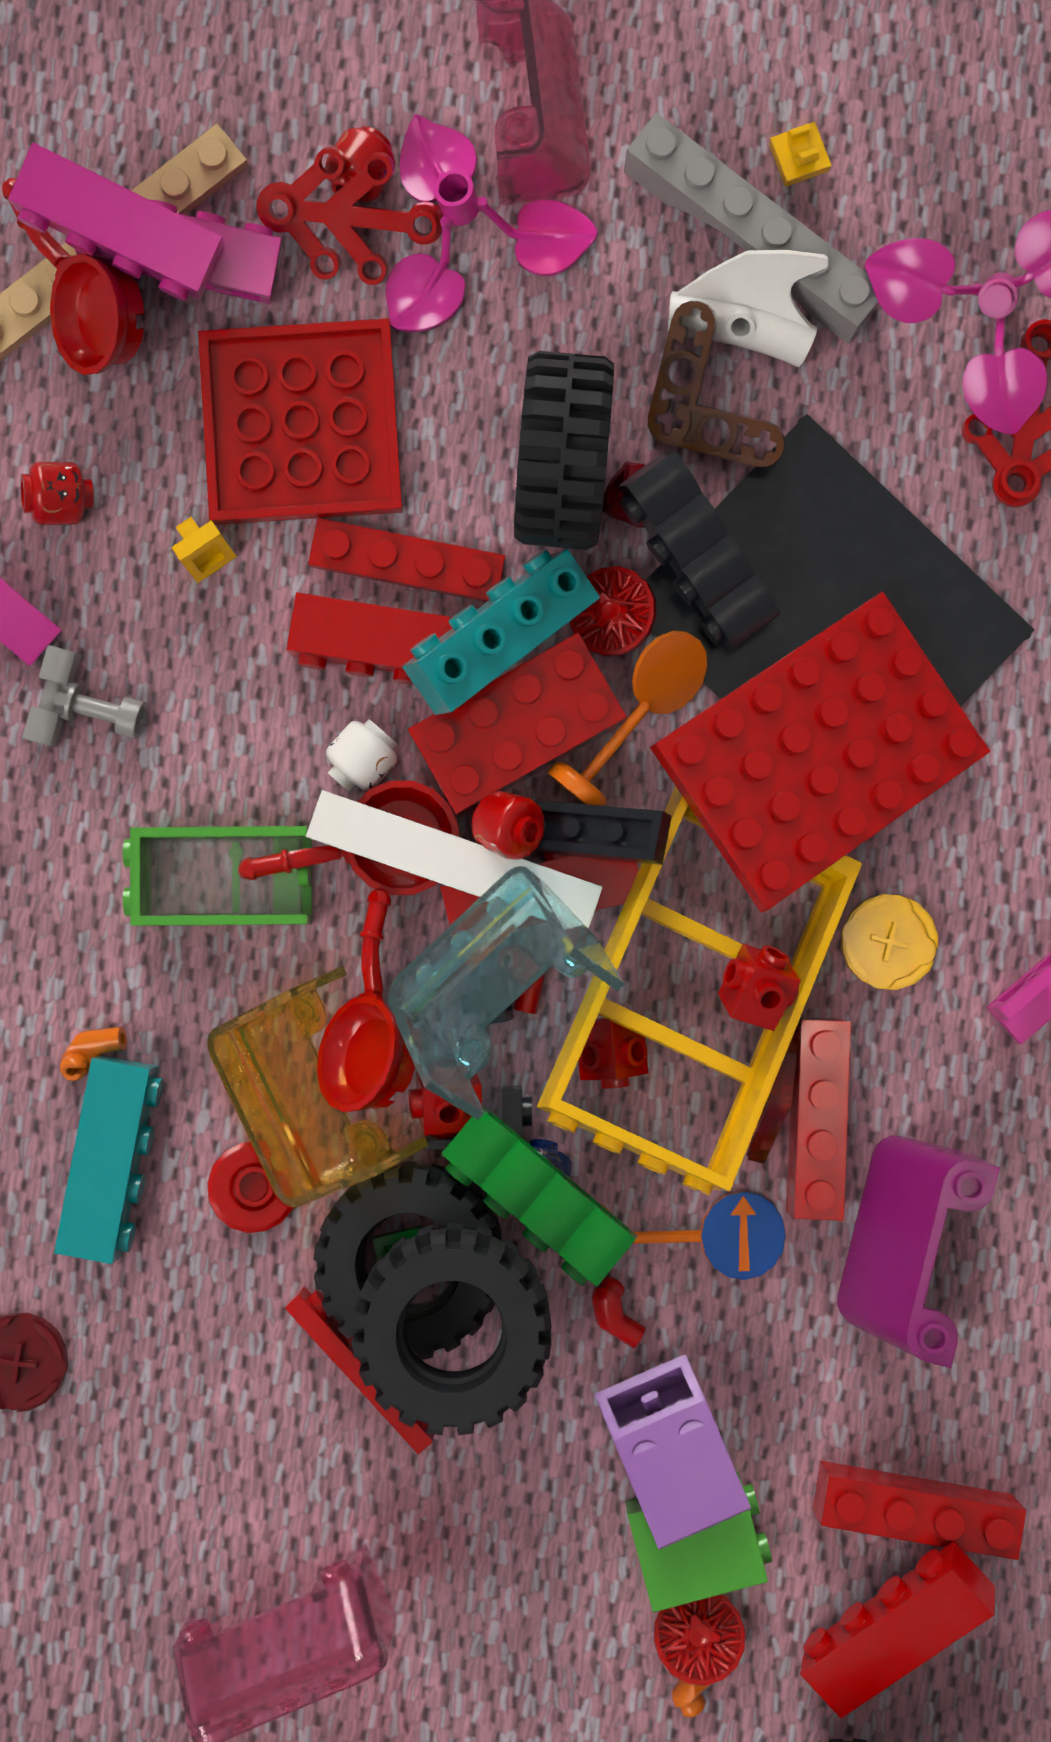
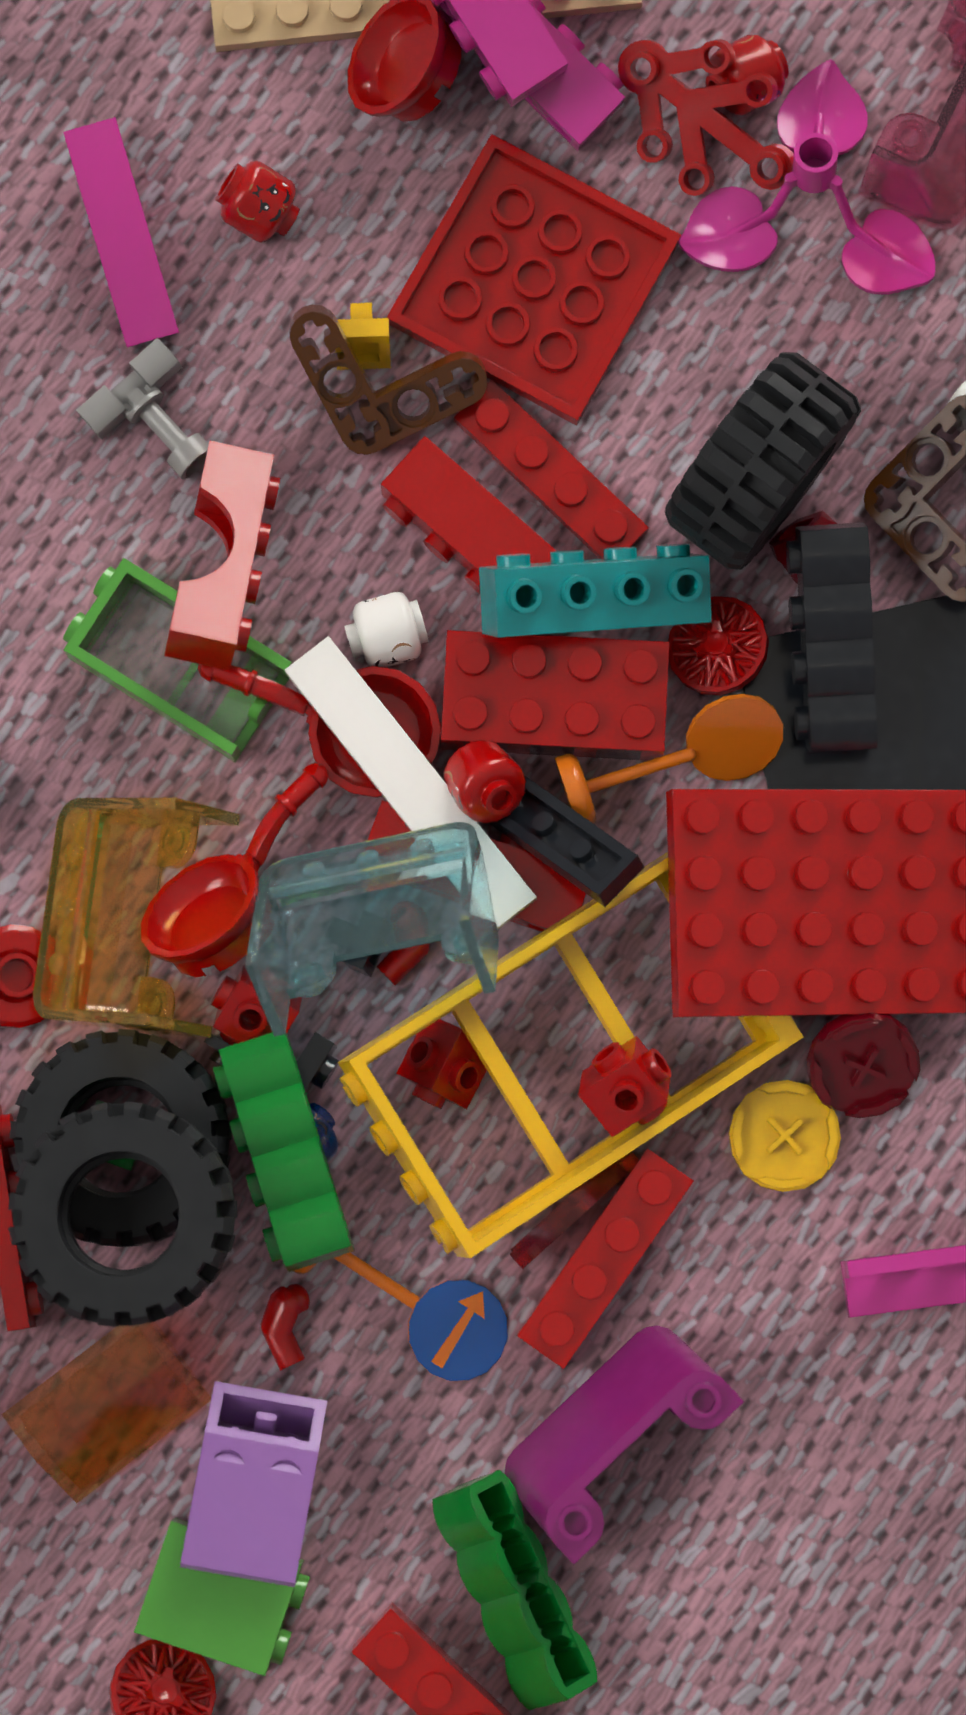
camera: 30 degrees right, 5 degrees down
(220, 827) = (209, 609): none -> arch
(248, 588) = (383, 403): none -> reddish brown beam
(525, 1464) = (107, 1407): none -> clear orange slope
(916, 854) = (863, 1064): none -> dark red tile
(916, 1407) = (519, 1602): none -> green brick

